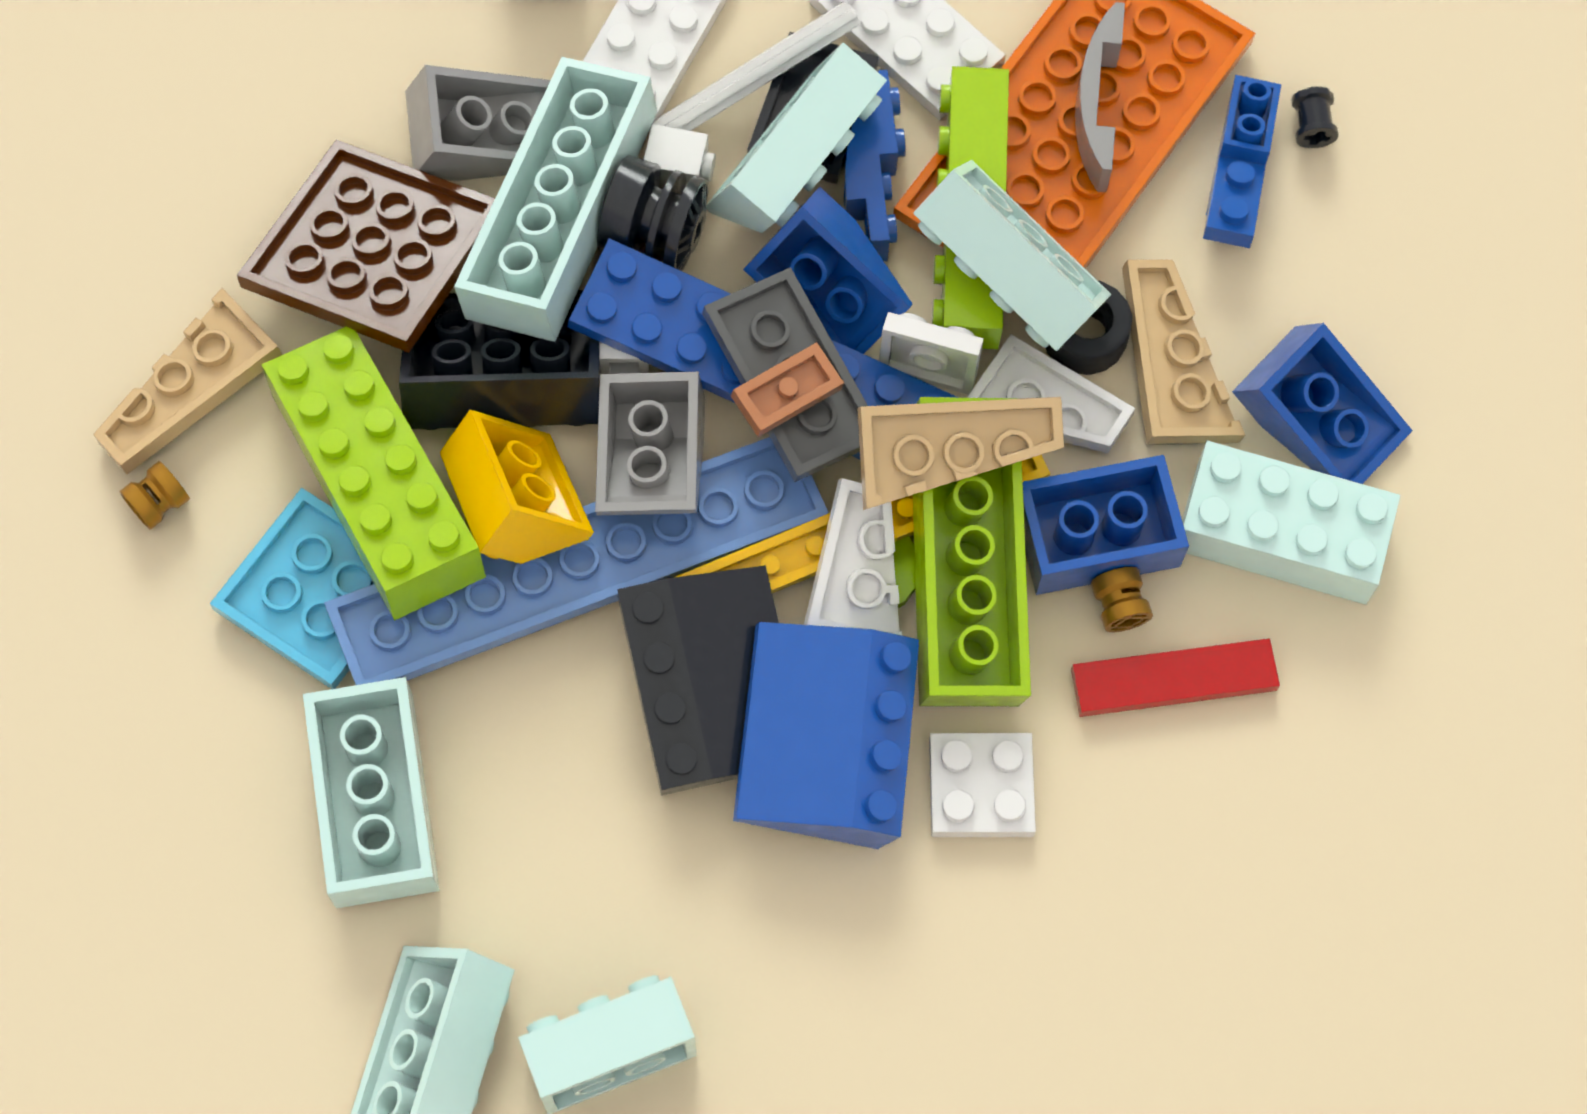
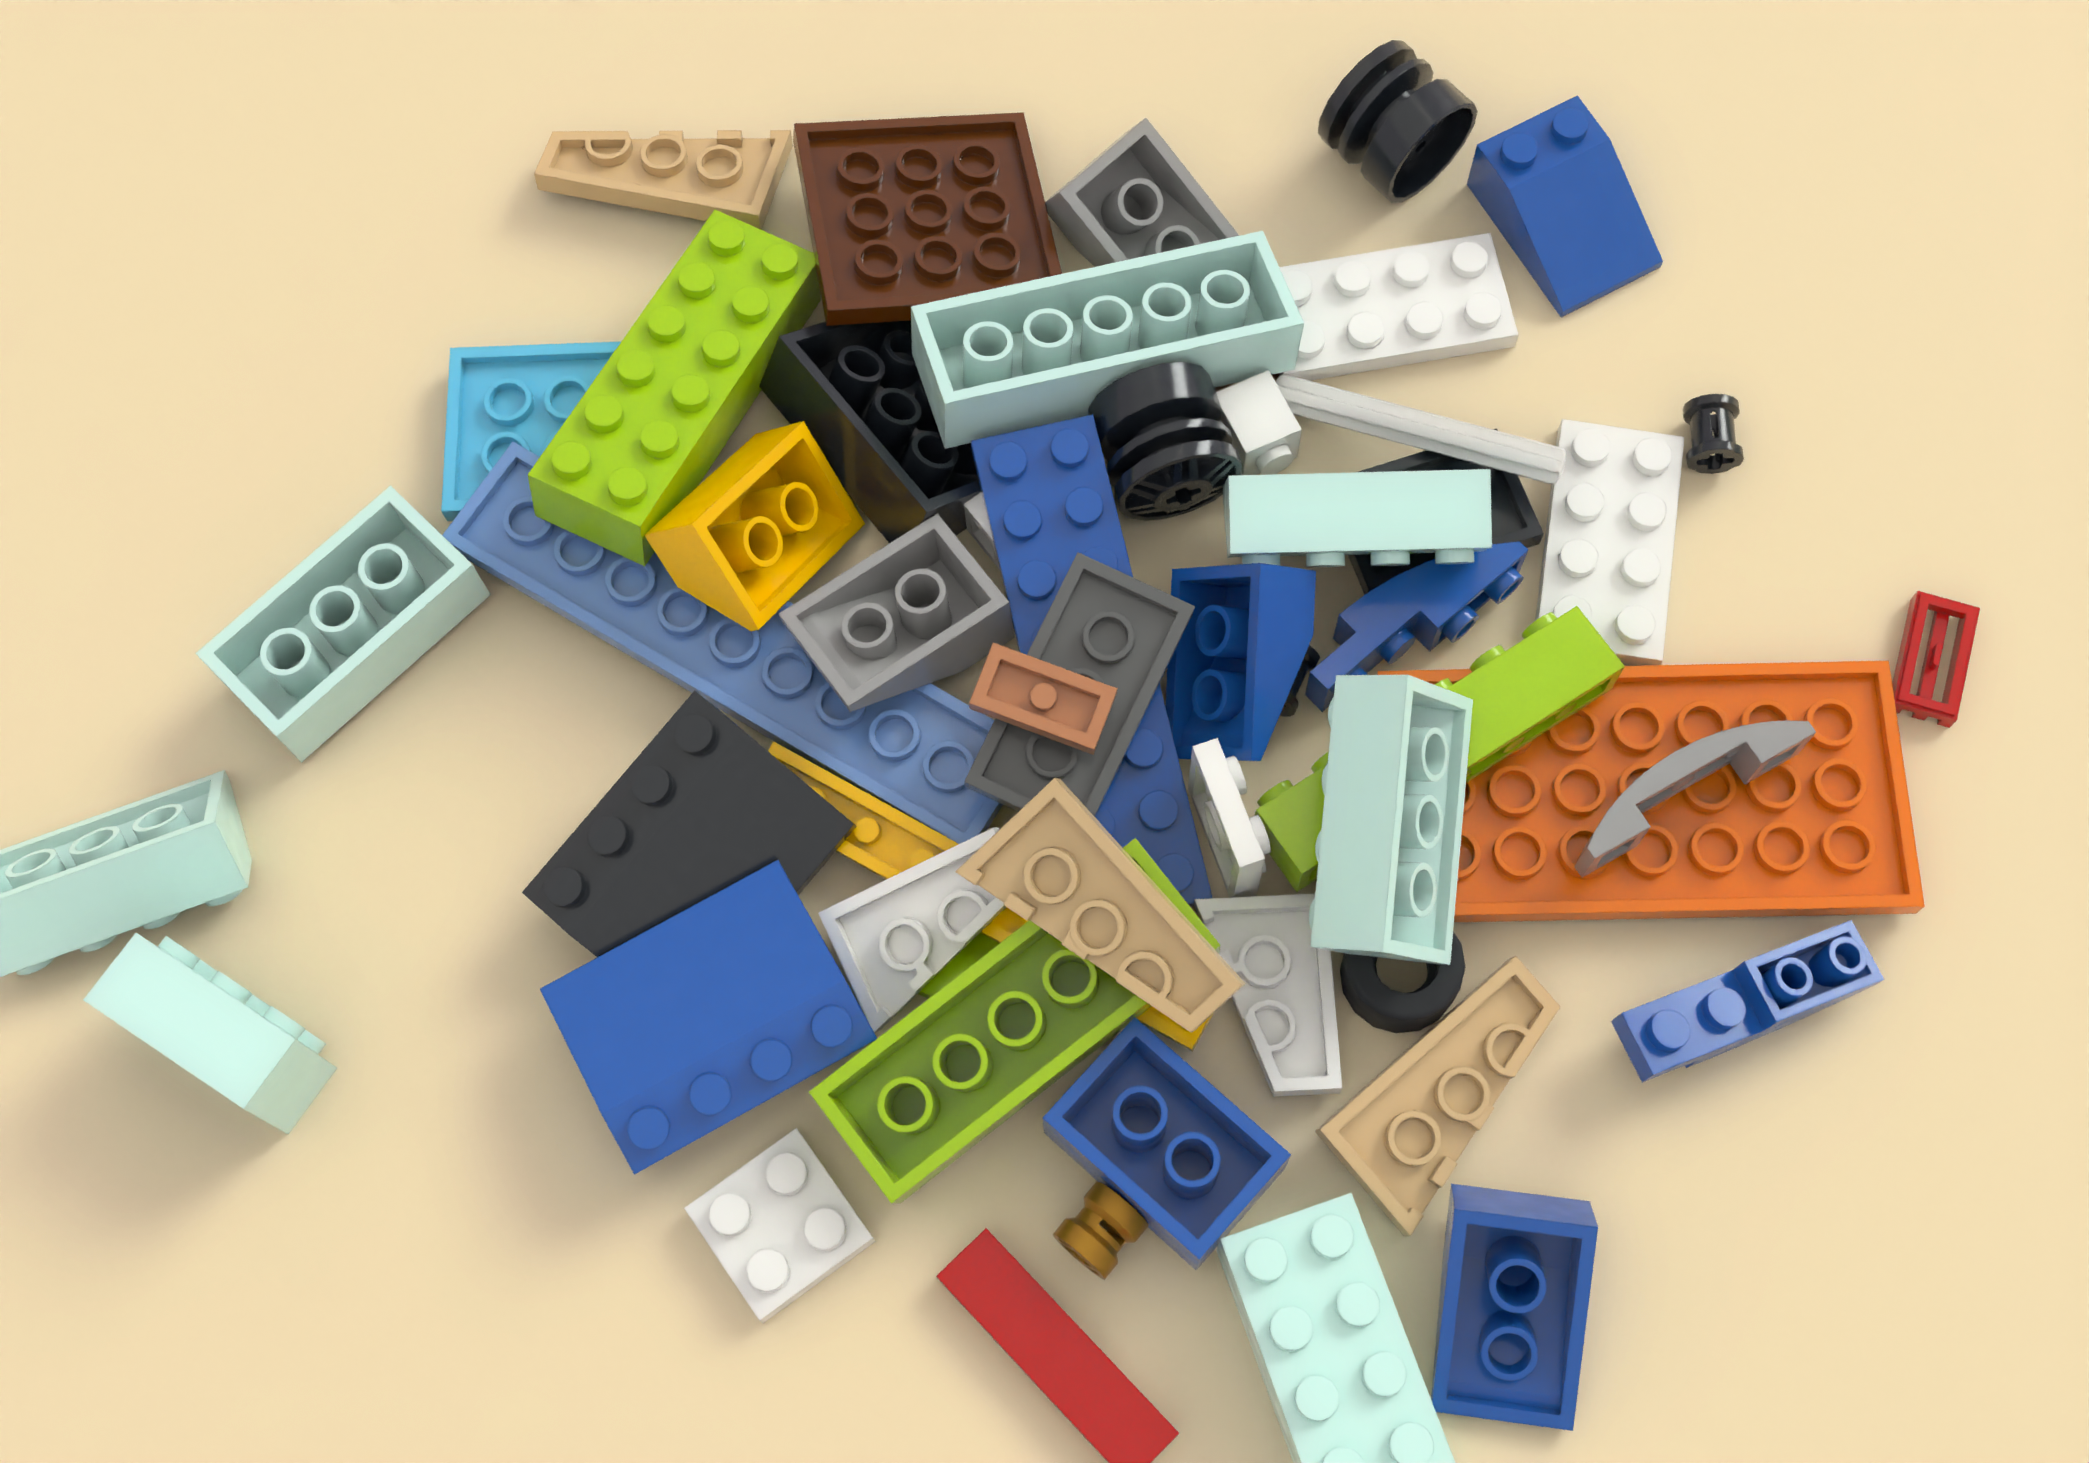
camera: 60 degrees right, 0 degrees up
(164, 489) = (529, 225): pearl gold wheel -> none
(1314, 117) = (1878, 1046): black bush -> none

